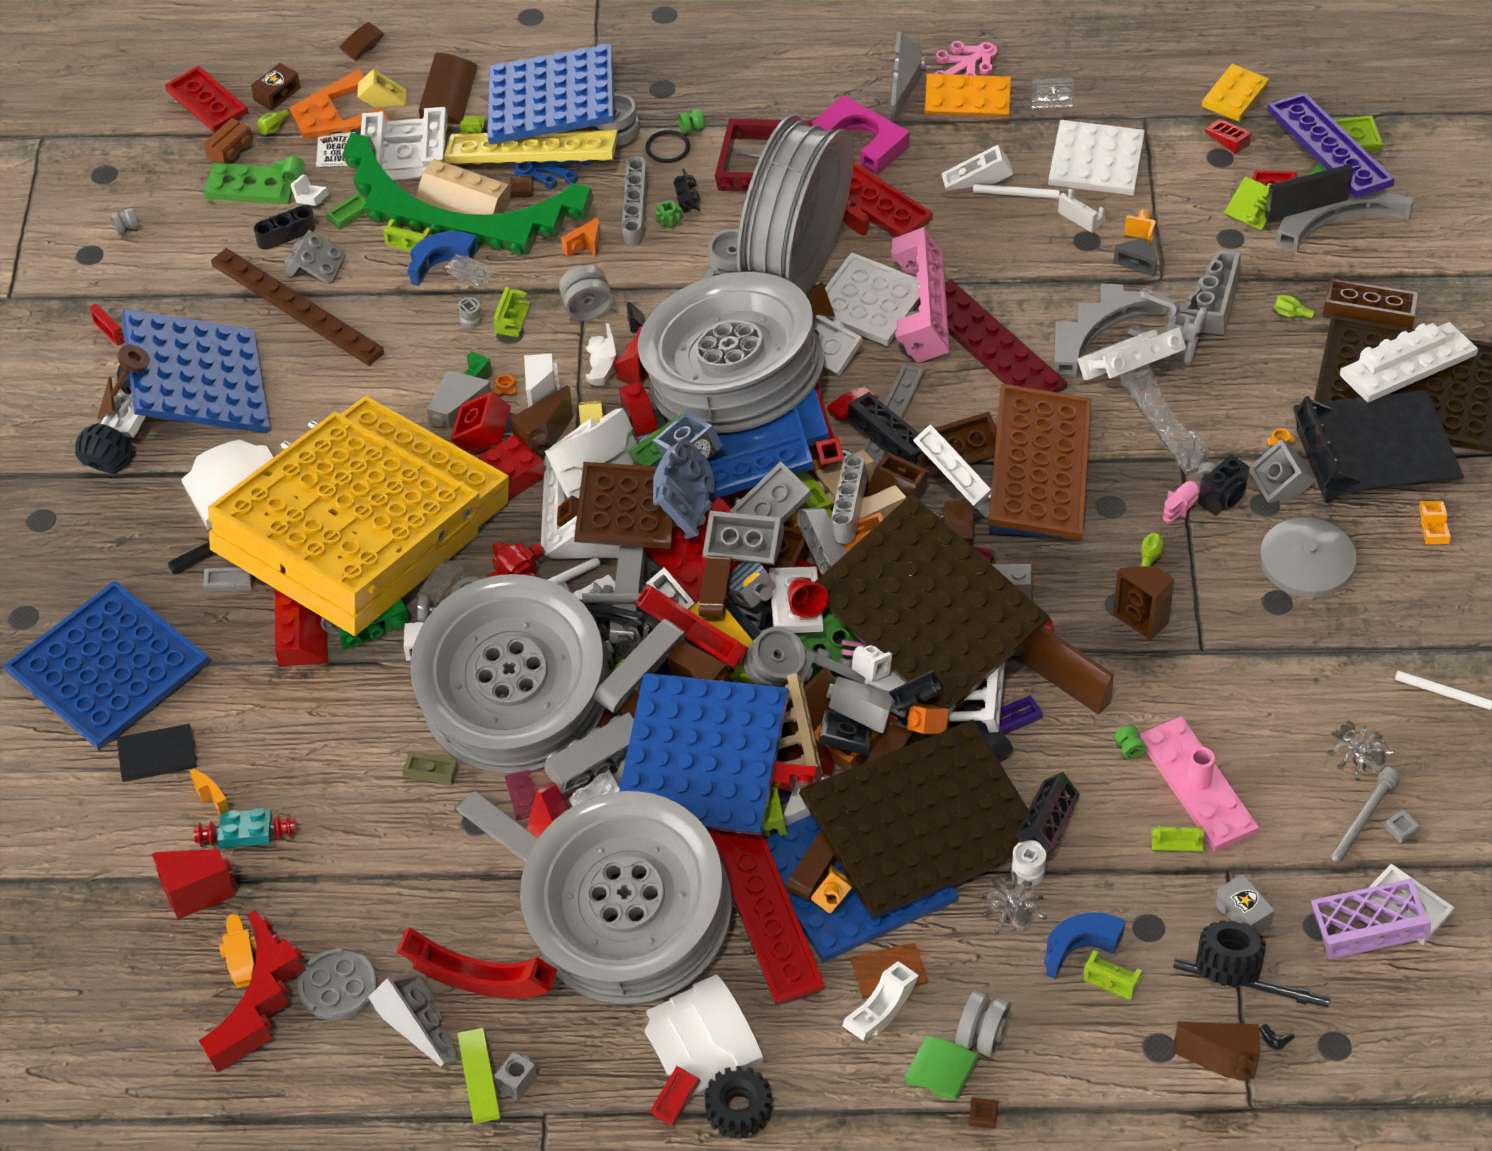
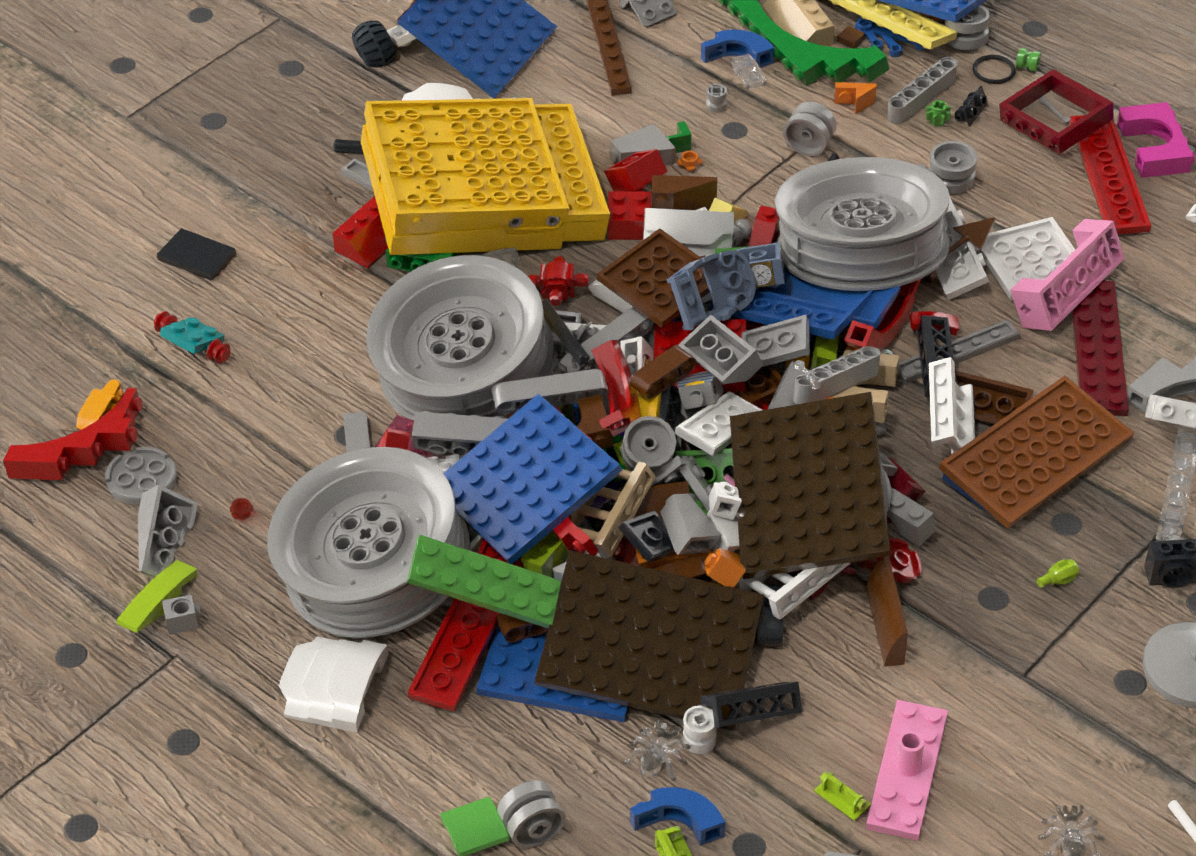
camera: 40 degrees right, 5 degrees down
(106, 664) = (227, 179): blue plate -> none
(194, 879) = (119, 344): red slope -> none
(209, 790) = (197, 298): light orange slope -> none
(401, 237) = (725, 21): lime hinge -> none
(430, 768) = (353, 377): olive plate -> none
(463, 944) = (241, 508): none -> clear red plate
(473, 975) = (232, 534): red arch -> none
(511, 312) = (746, 114): lime hinge -> none
(540, 377) = (700, 159): white slope -> none
(576, 571) = (587, 311): white bar -> none
(602, 358) = (771, 184): white animal -> none
(610, 597) = (581, 333): light grey bar -> none
(675, 1095) = (267, 705): red tile -> none
(738, 1084) = (301, 727): black tyre -> none
(770, 862) = (484, 581): none -> bright green plate
(796, 202) = (1011, 140): light grey wheel -> none
(806, 602) = (718, 419): red hat -> none
(821, 507) = (815, 383): none -> clear hinge
(832, 890) = (525, 641): light orange bracket -> none
(856, 219) = (1083, 193): red slope -> none
(870, 966) = (517, 733): clear orange piece -> none
(884, 1002) = (478, 752): white arch -> none
(899, 472) = (906, 397): reddish brown slope -> none
(922, 687) = (731, 539): black hinge -> none
(959, 518) = (920, 456): reddish brown brick -> none
(1019, 718) = (814, 625): dark purple tile -> none
(1130, 742) = (881, 704): bright green wheel -> none
(1143, 599) = (1002, 599): reddish brown slope -> none
(1180, 501) = (1124, 553): bright pink arm -> none

